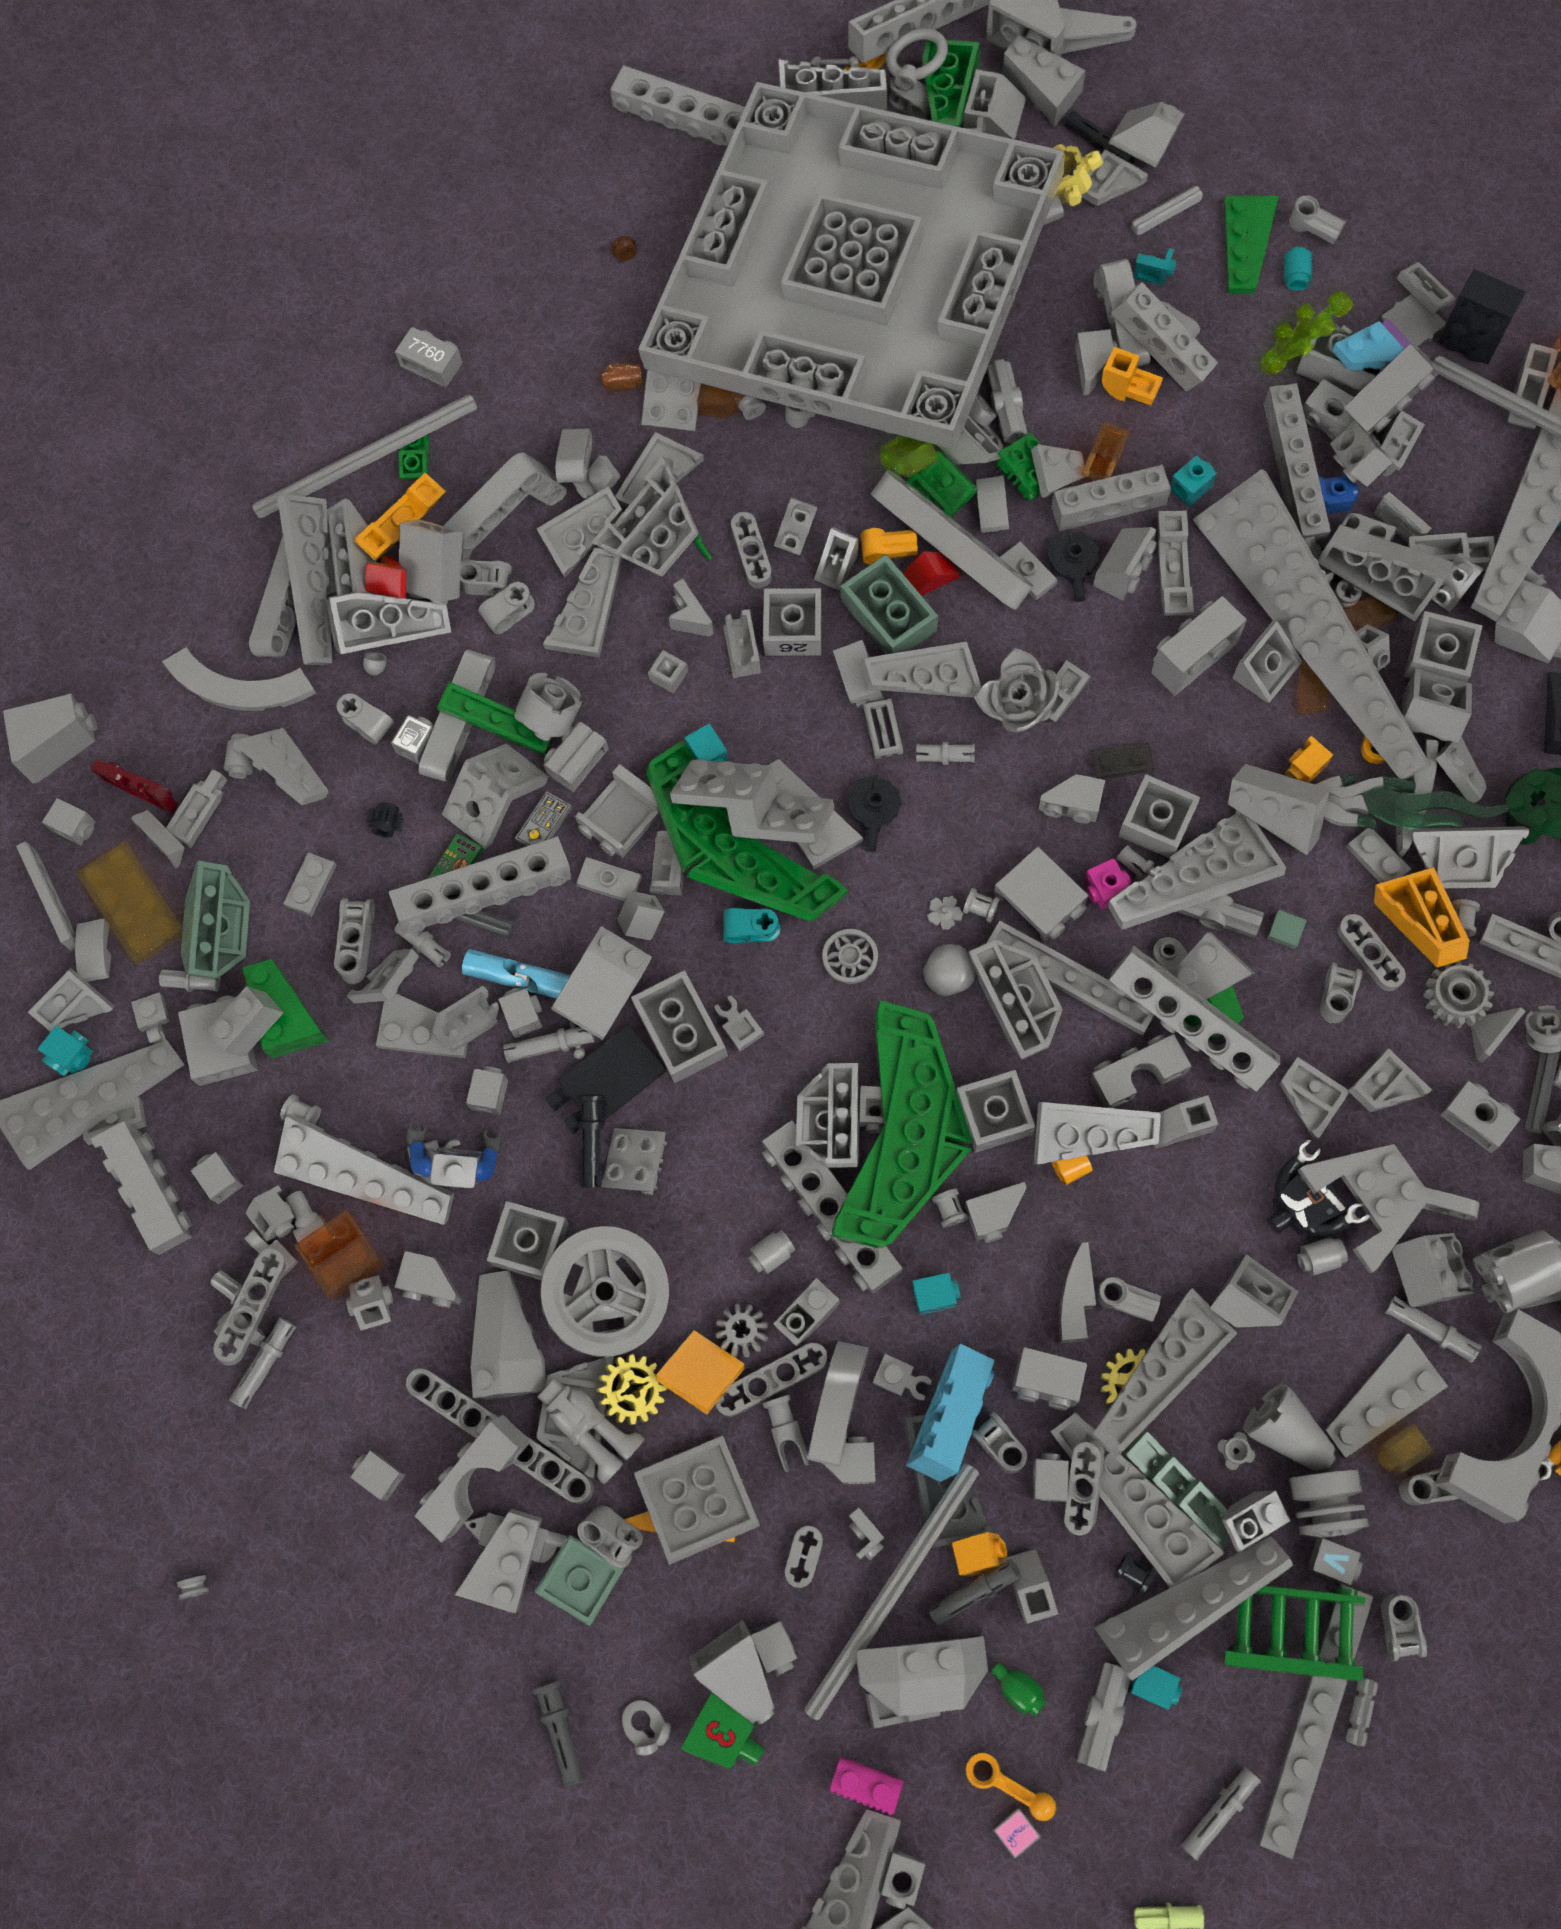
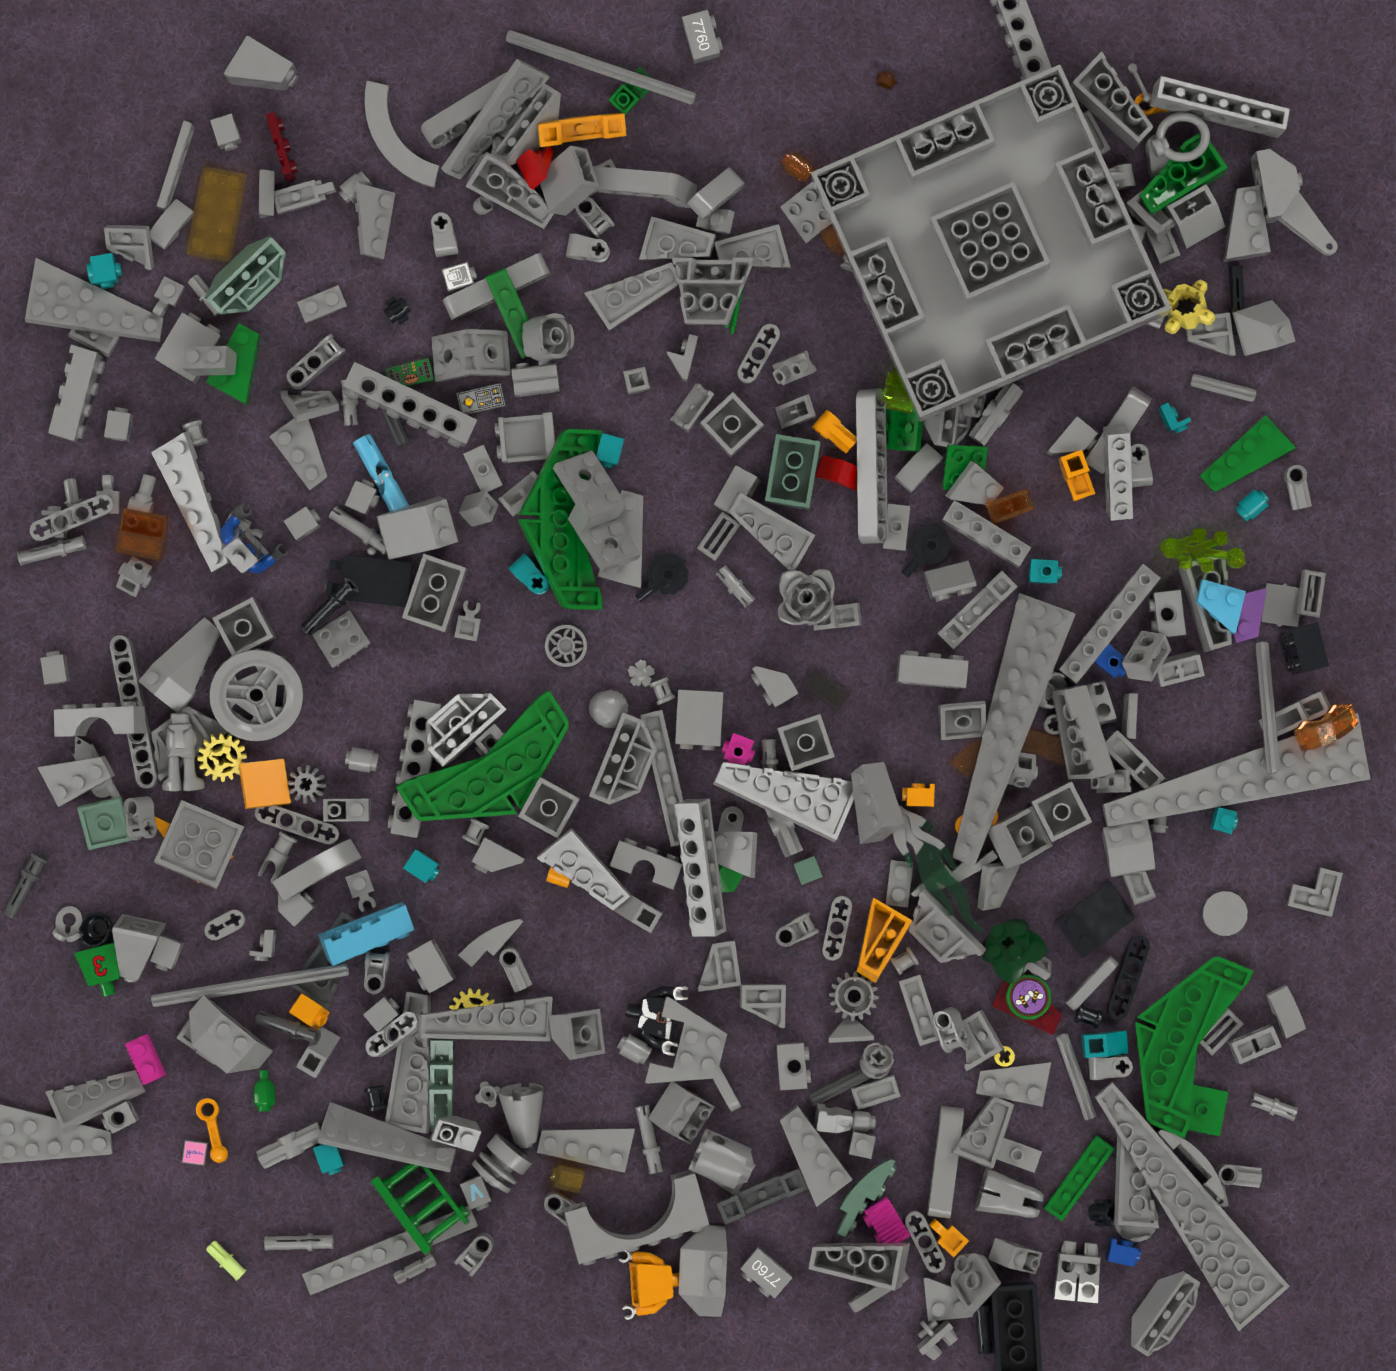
camera: 40 degrees right, 15 degrees up
(271, 1214) = (127, 476): light grey brick -> none
(426, 1278) = (175, 592): light grey slope -> none
(465, 1019) = (328, 474): light grey hinge -> none
(679, 1700) = (96, 929): none -> black hair
(1392, 389) = (1200, 641): light grey wedge -> none

